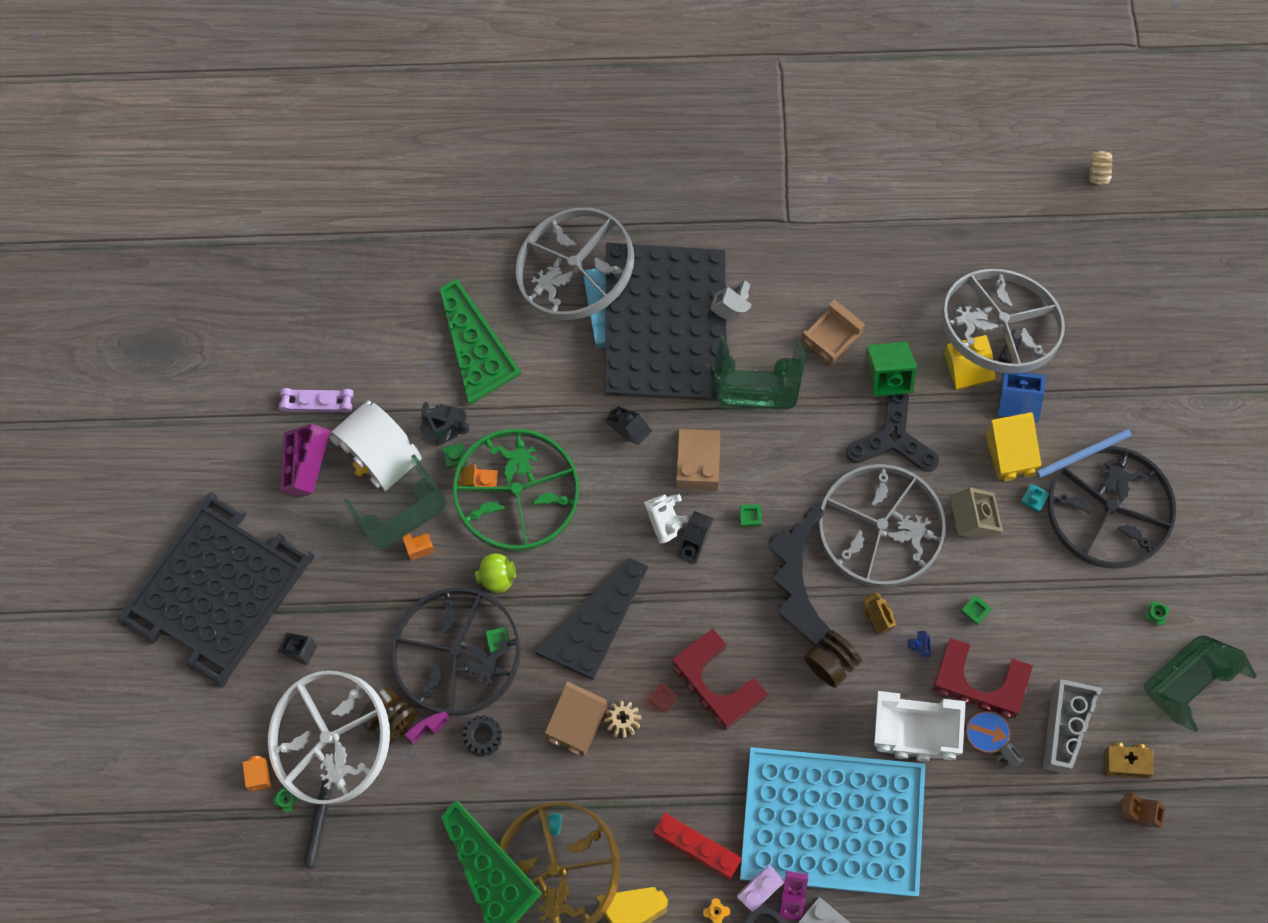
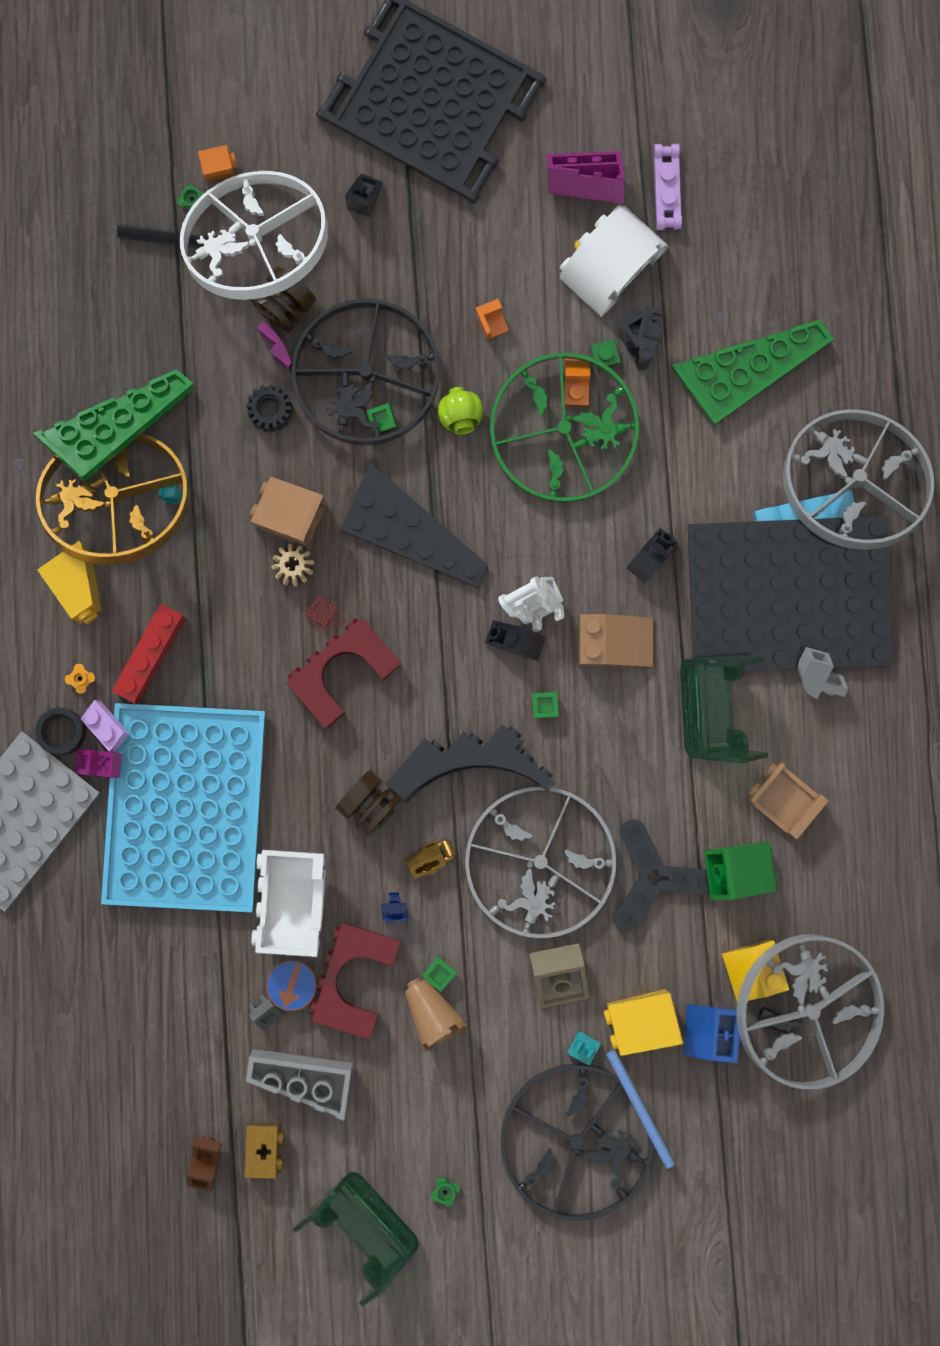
camera: 85 degrees right, 15 degrees up
(429, 505) = (500, 279): clear green windscreen -> none
(1010, 615) = (432, 1015): none -> medium nougat cone

